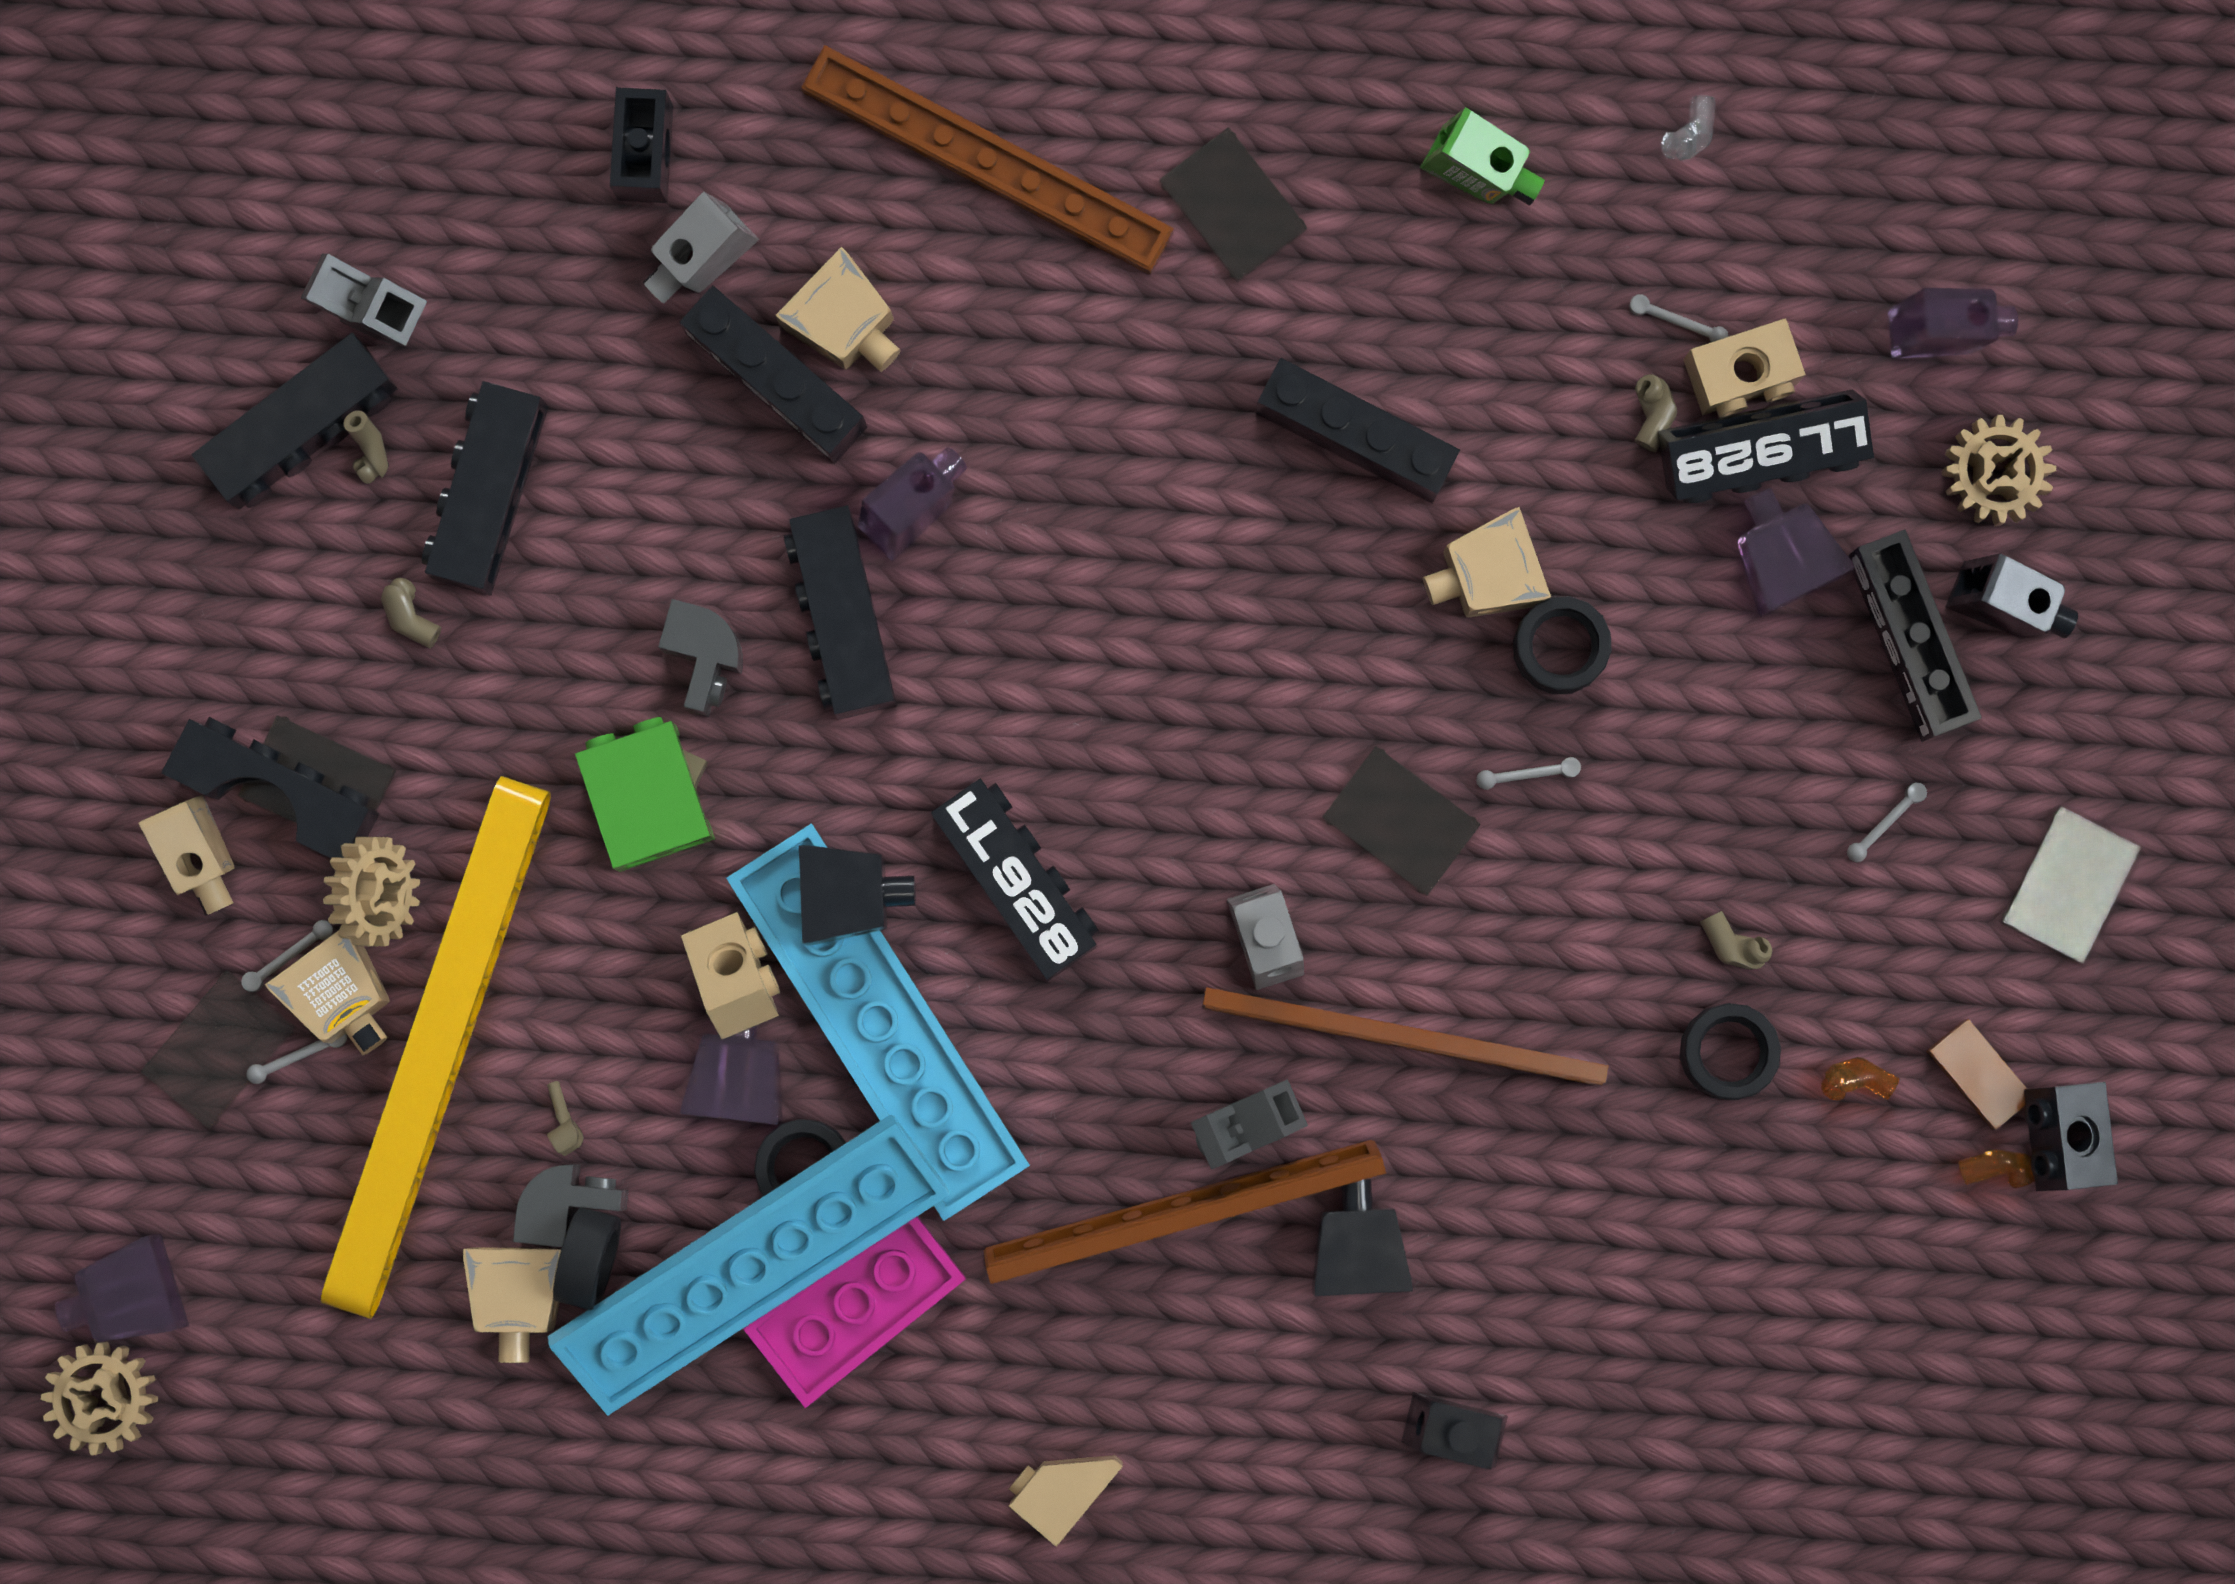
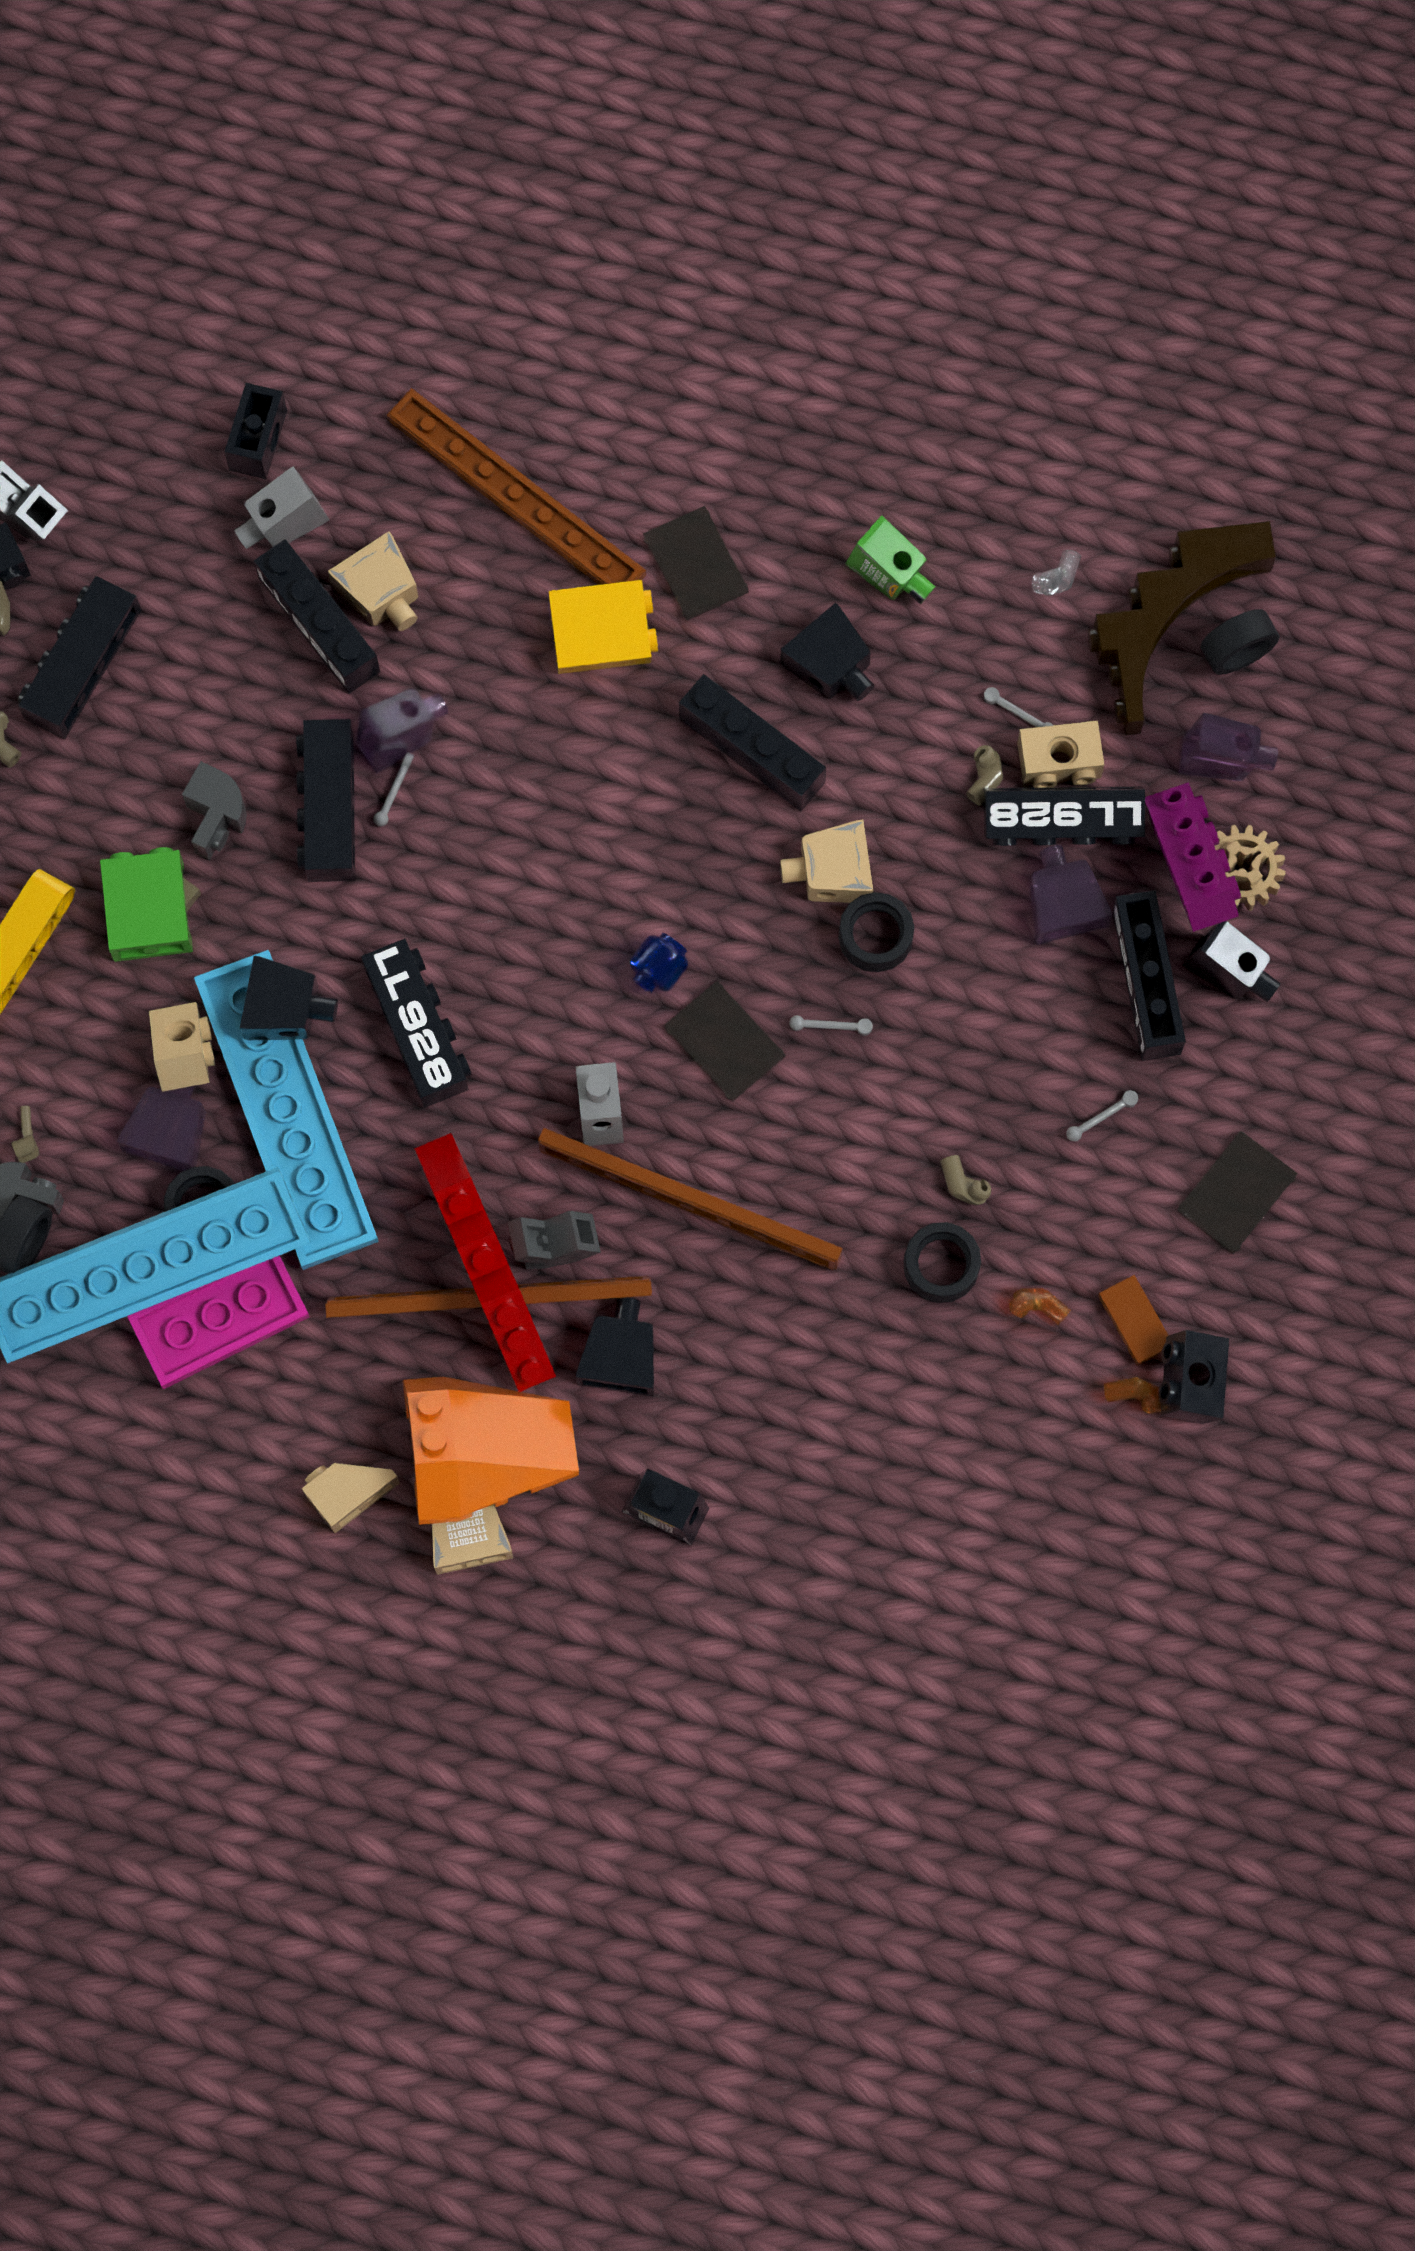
camera: 10 degrees right, 10 degrees down
(912, 619) = (381, 818): none -> light grey hinge
(1137, 317) = (602, 626): none -> yellow brick
(1167, 1169) = (485, 1262): none -> red arch
(1218, 1402) = (483, 1445): none -> orange wedge
(1220, 1507) = (470, 1542): none -> tan torso
(1301, 742) = (659, 963): none -> clear blue head
(1430, 296) = (830, 656): none -> black torso
(1803, 197) = (1198, 564): none -> dark brown arch
(1942, 177) = (1240, 641): none -> black tyre
(1943, 476) = (1192, 857): none -> magenta brick

